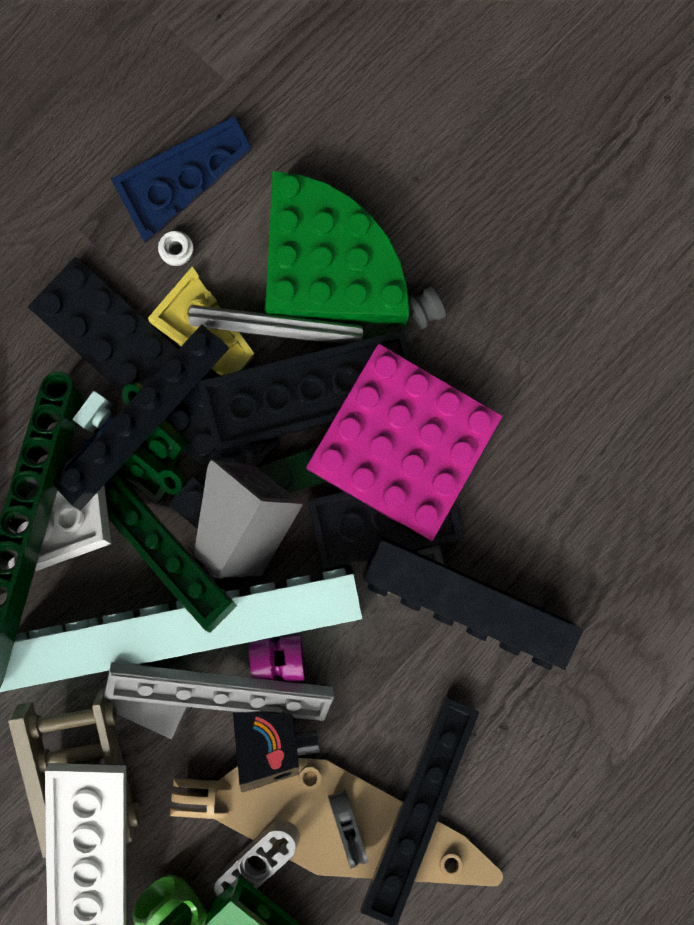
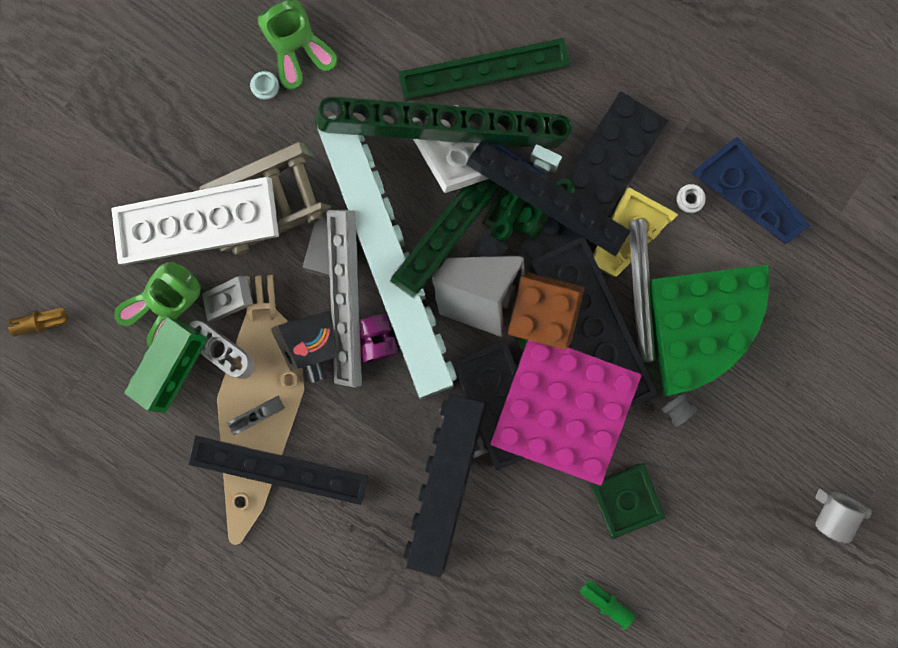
camera: 80 degrees right, 0 degrees up
(193, 842) = (227, 298): none -> light grey plate
(281, 443) = (546, 310): none -> dark orange brick
(523, 388) = (627, 501): none -> dark green tile
(579, 147) = (840, 515): none -> light grey piece
(641, 434) = (607, 604): none -> green axle

